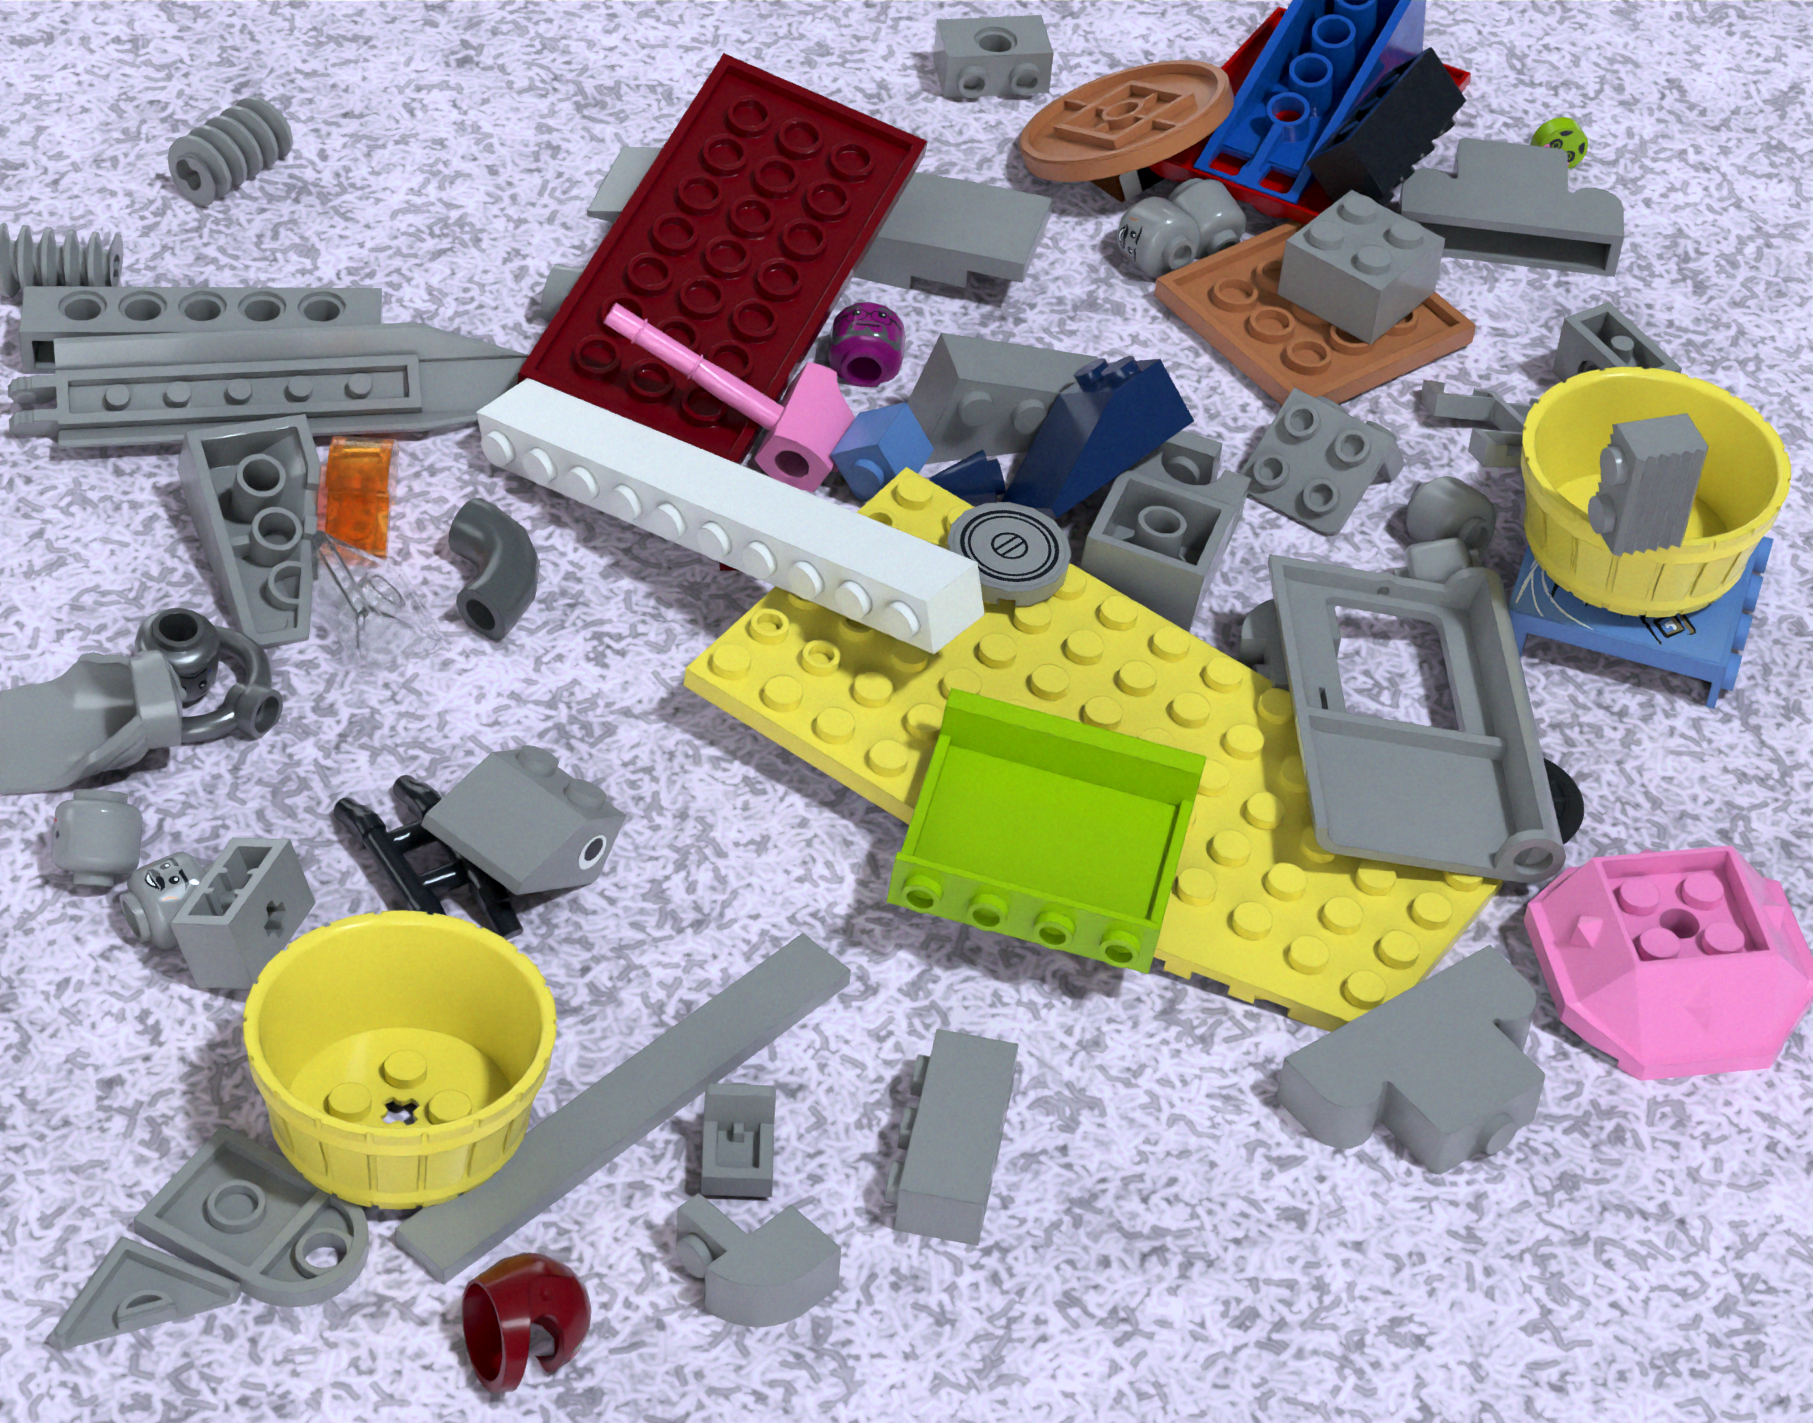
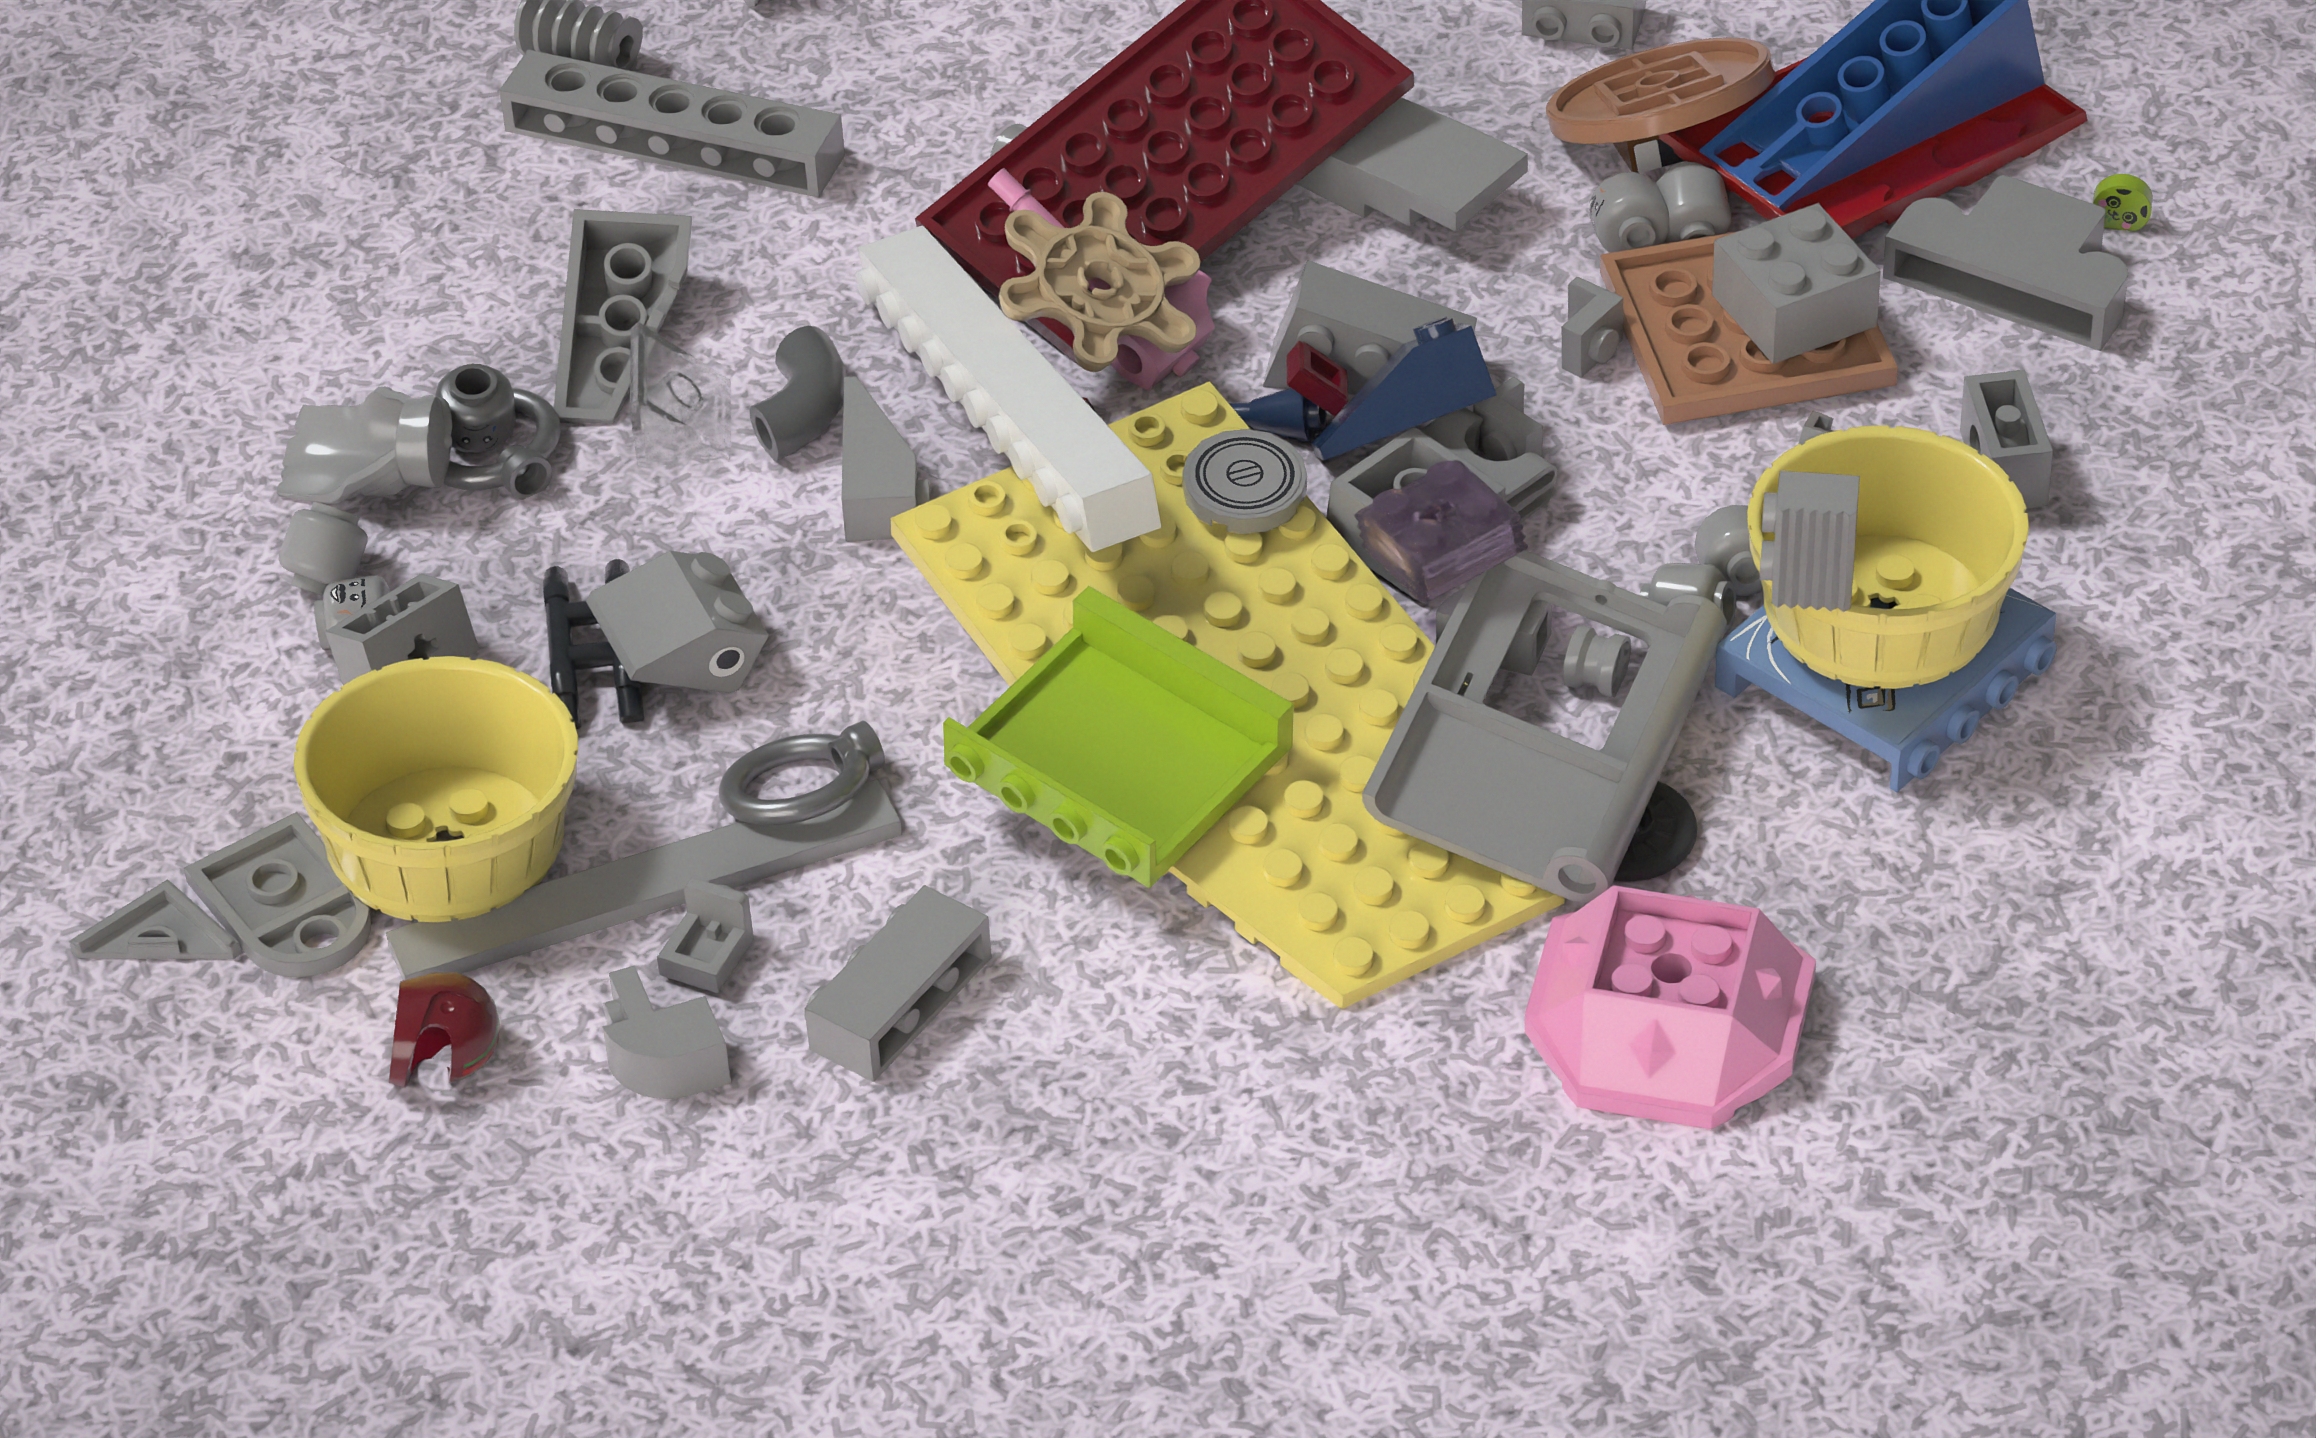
camera: 30 degrees right, 0 degrees up
(339, 376) = (728, 183): light grey hinge -> none
(361, 491) = (718, 291): clear orange brick -> none
(615, 624) = (876, 468): none -> light grey slope
(766, 911) = (852, 754): none -> flat silver piece
(784, 378) = (1103, 251): none -> tan plate
(866, 344) = (1273, 260): magenta head -> none
(879, 448) = (1223, 355): medium blue brick -> none
(993, 443) = (1317, 378): none -> dark red tile
(1190, 334) = (1592, 326): none -> light grey bracket
(1232, 558) = (1440, 530): none -> clear purple brick
(1319, 462) = (1644, 465): light grey bracket -> none
(1389, 130) = (1909, 152): black brick -> none
(1395, 650) = (1596, 660): none -> light grey wheel
(1429, 1065) = (1365, 1035): light grey brick -> none

